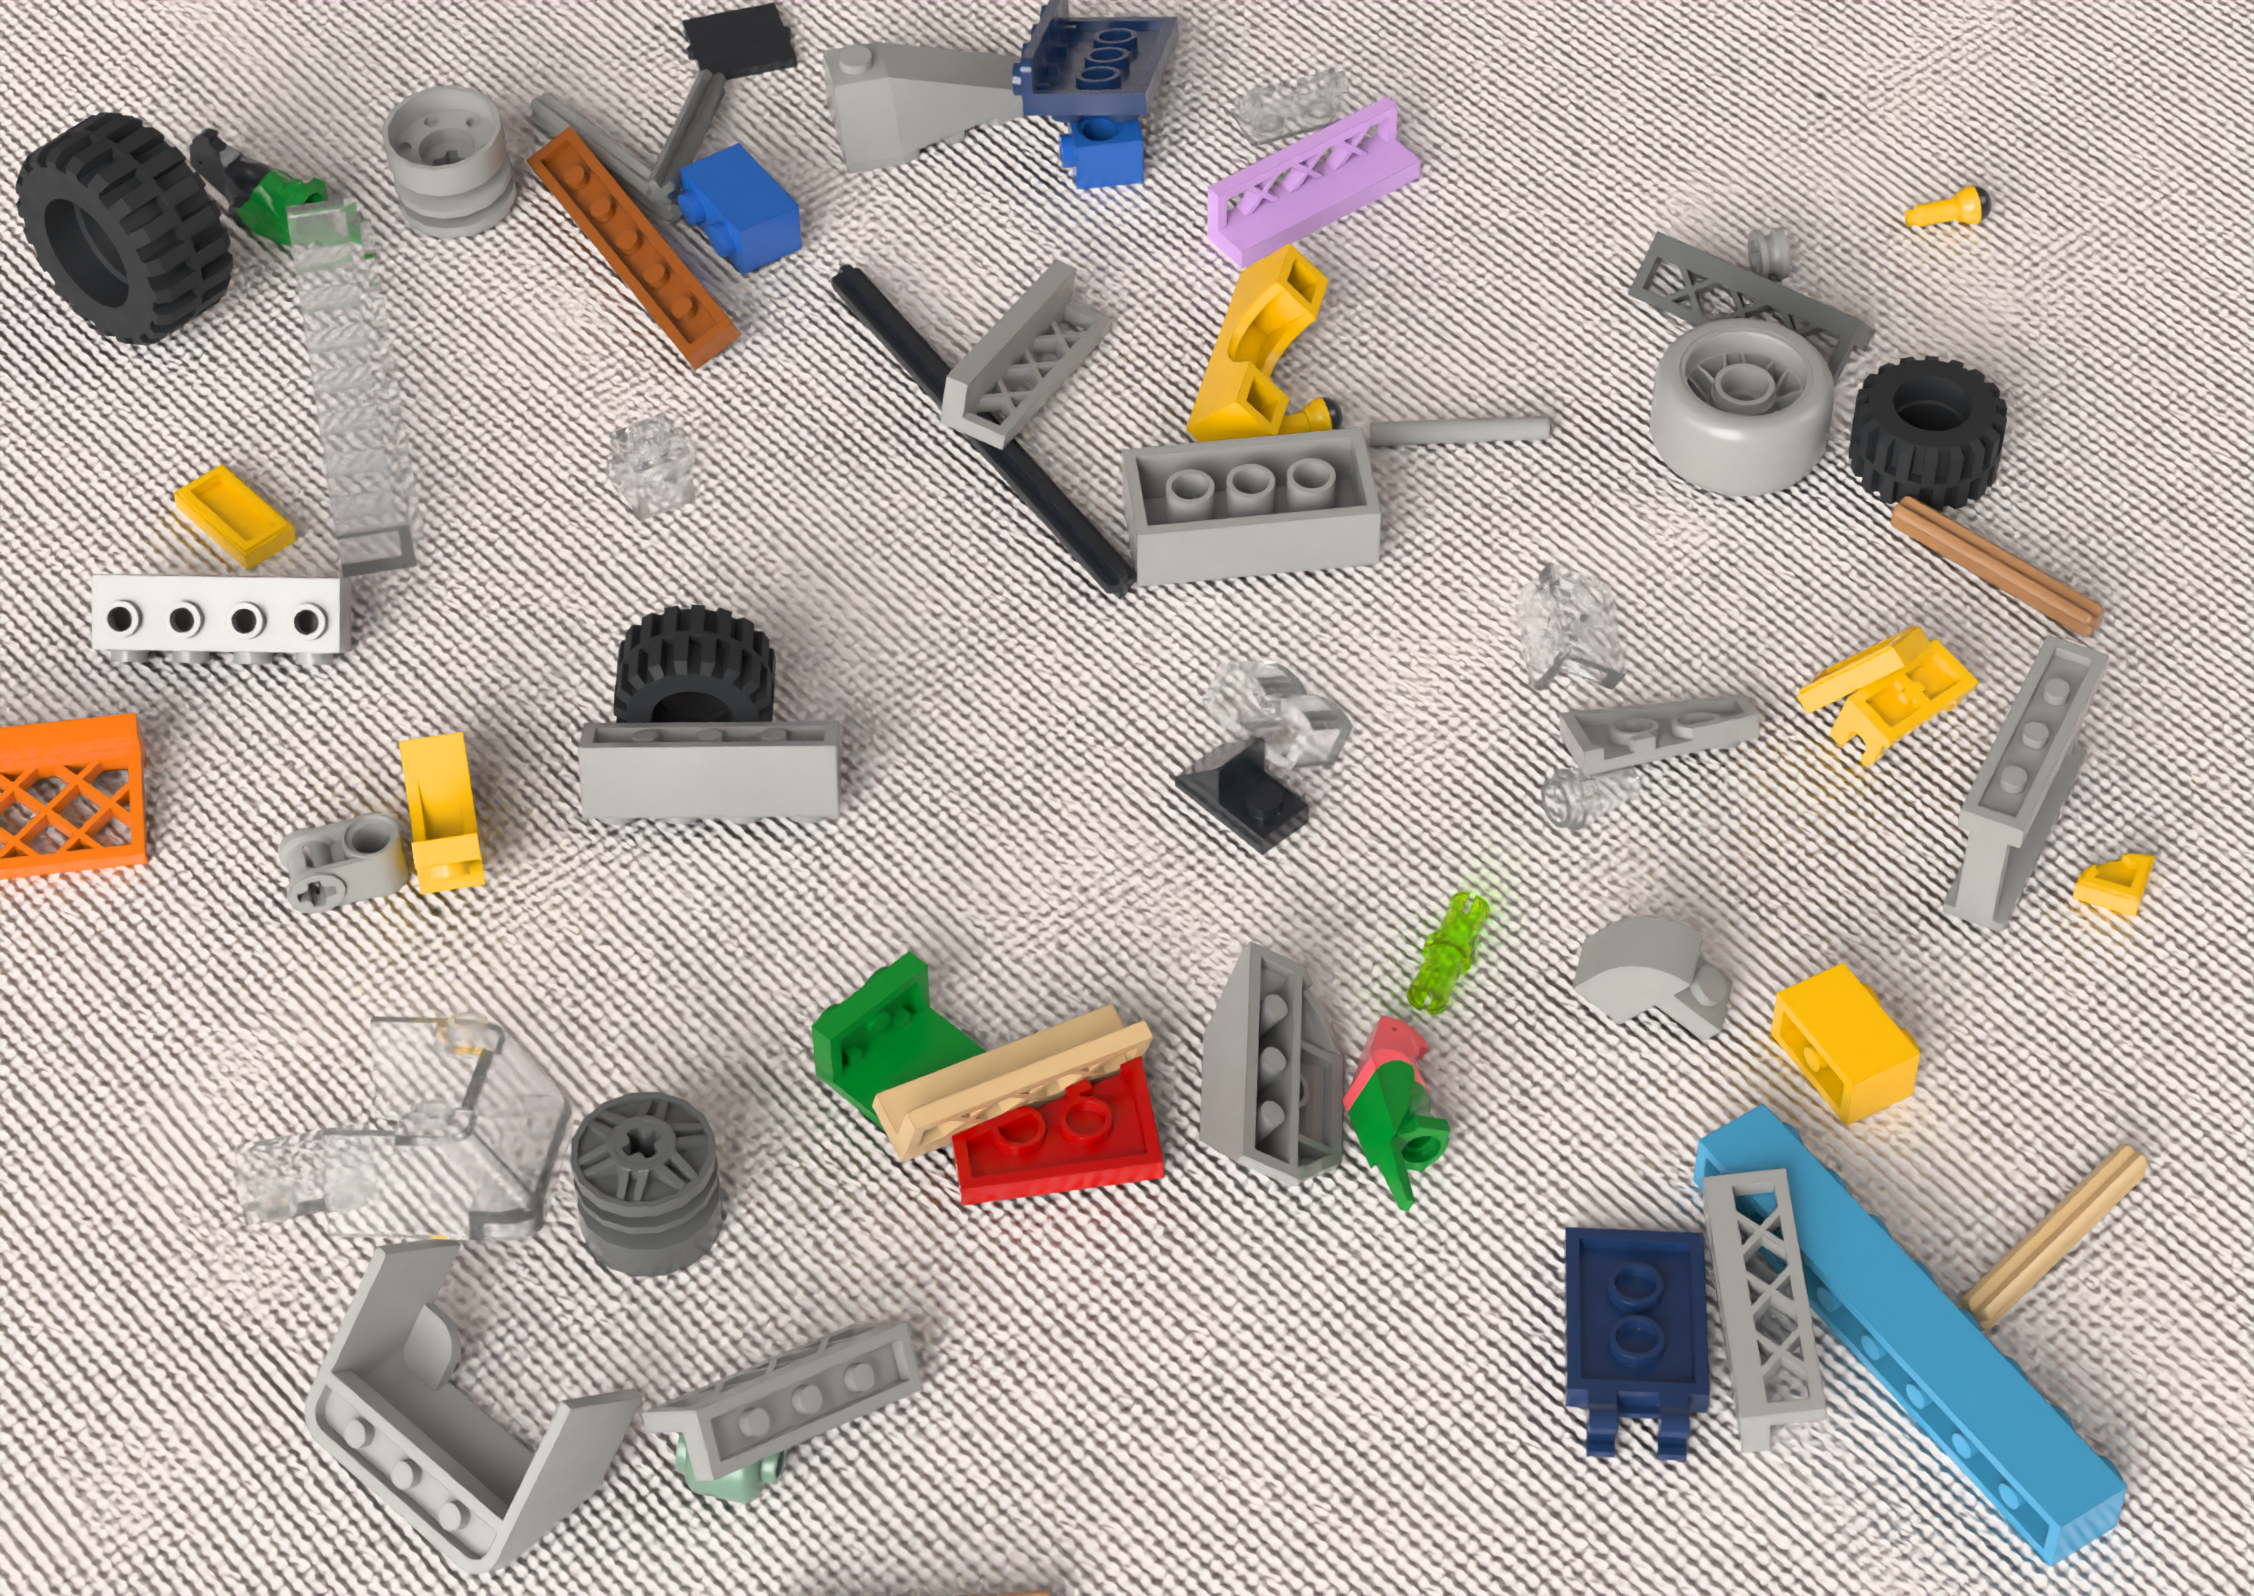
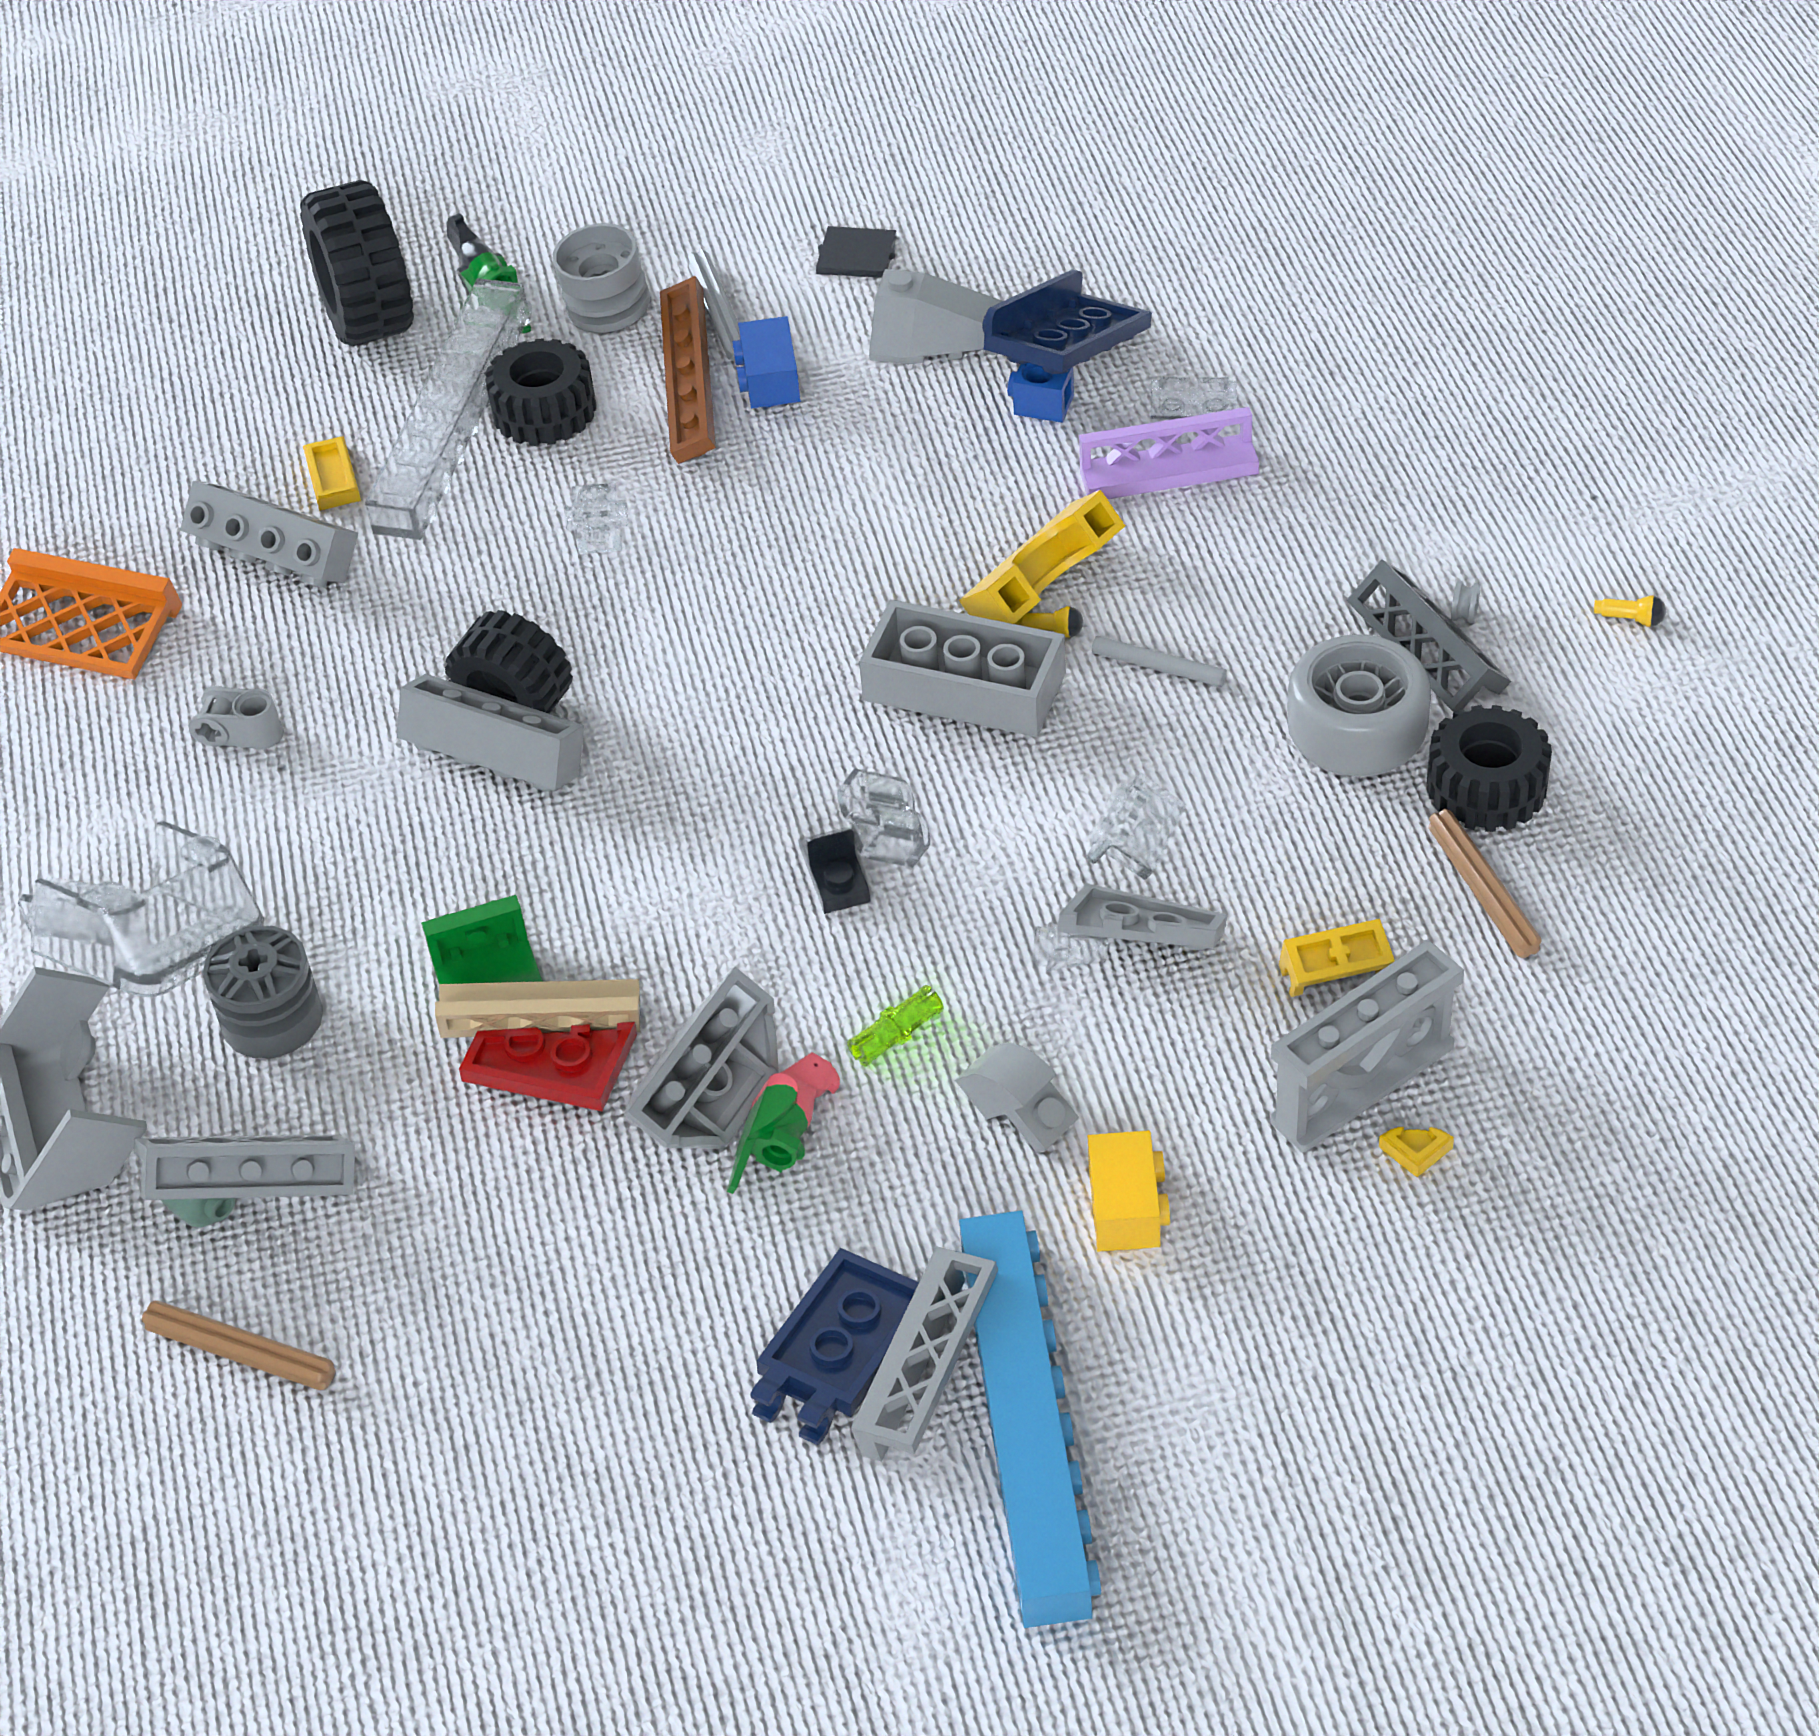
camera: 30 degrees right, 0 degrees up
(442, 813) = (314, 708): yellow arch -> none
(464, 329) = (540, 391): none -> black tyre
(686, 136) = (770, 302): dark grey axle -> none
(1006, 357) = (874, 509): light grey fence -> none
(1012, 462) = (832, 562): black axle -> none
(1863, 668) = (1313, 922): yellow tile -> none
(2054, 1235) = (1185, 1388): tan axle -> none

